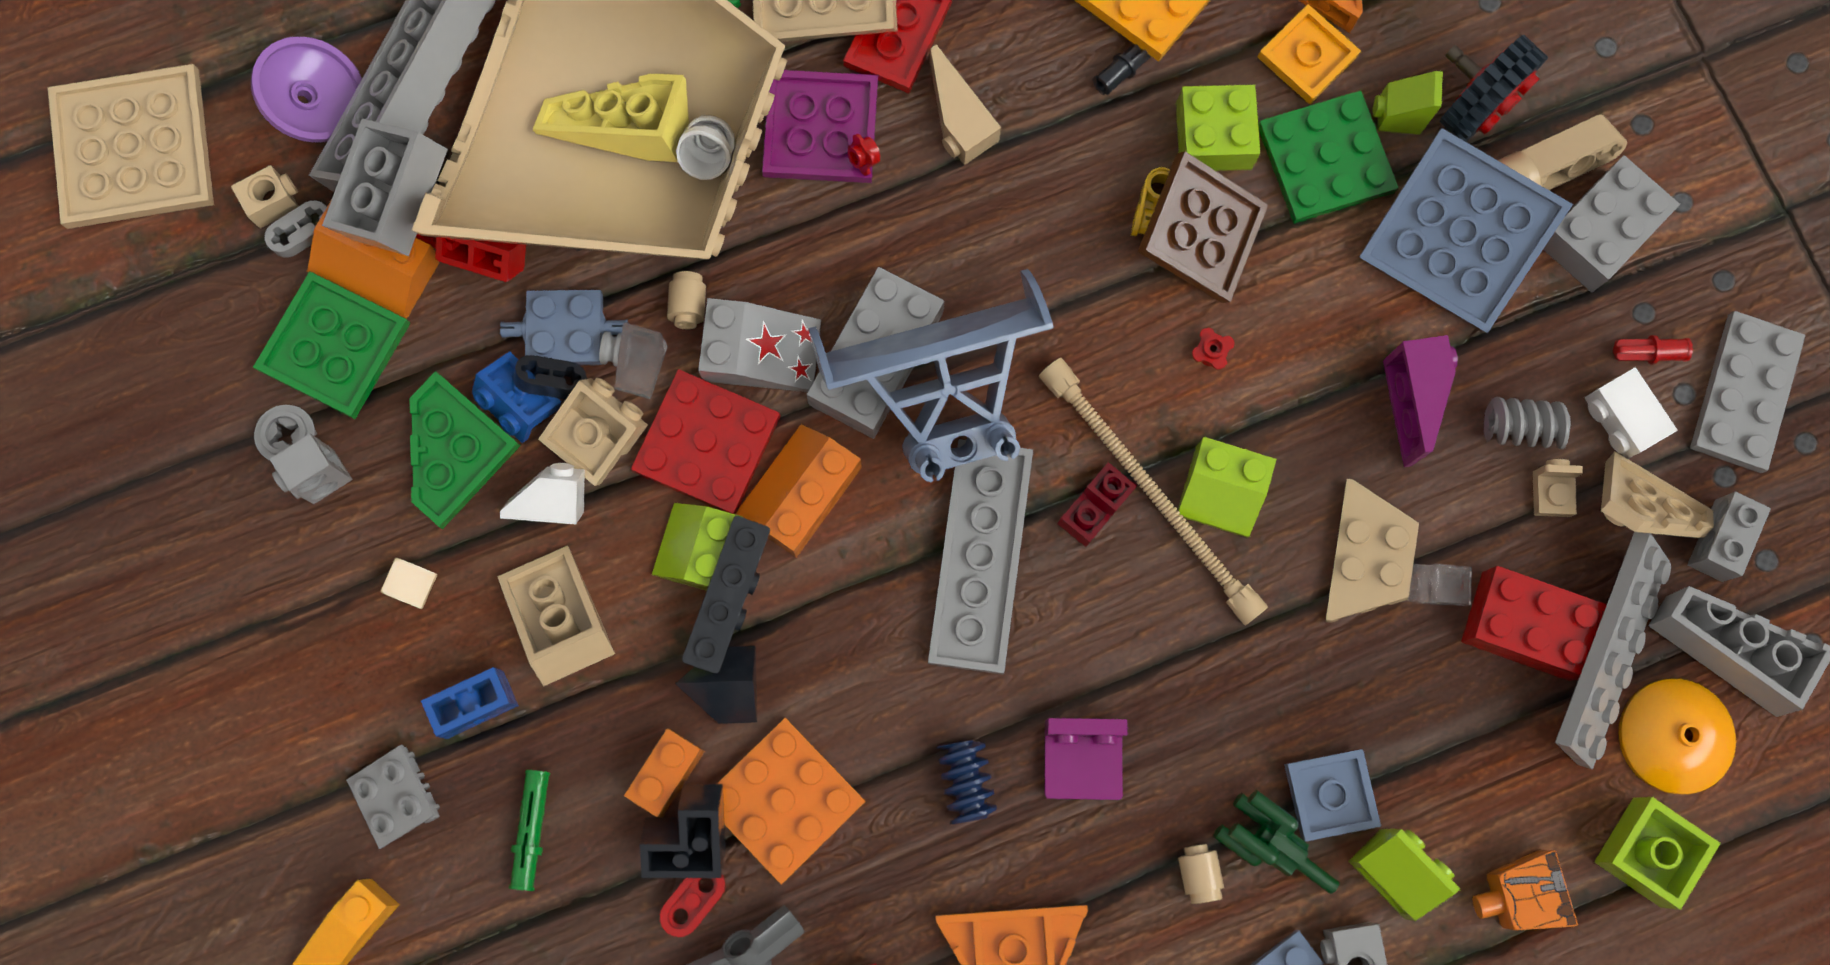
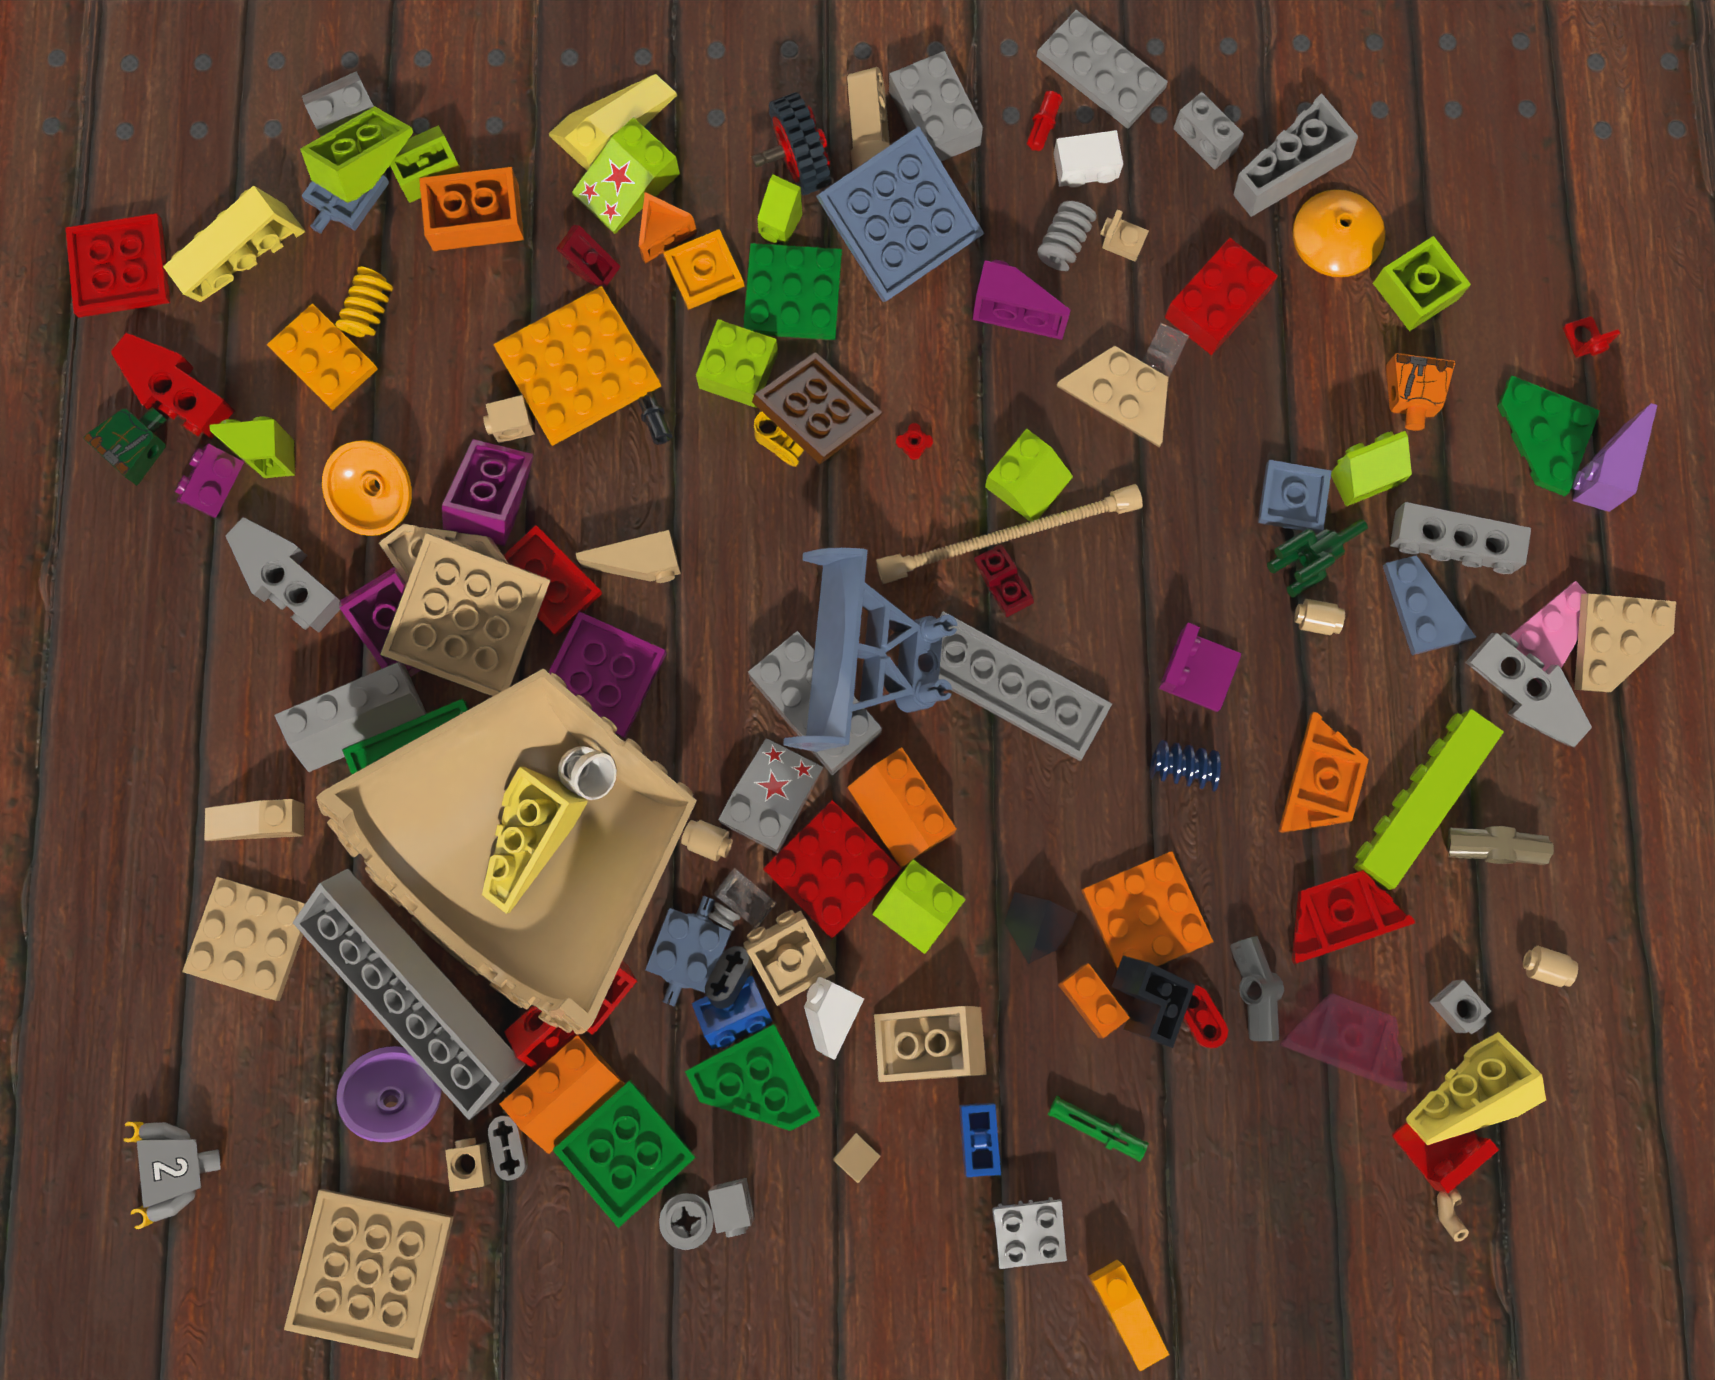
camera: 65 degrees left, 0 degrees up
(384, 186) = (521, 1049): light grey brick -> none
(726, 593) = (972, 895): black bracket -> none
(863, 153) = (645, 647): red plate -> none
(1613, 651) = (1256, 240): light grey plate -> none
(1650, 504) = (1163, 175): tan plate -> none

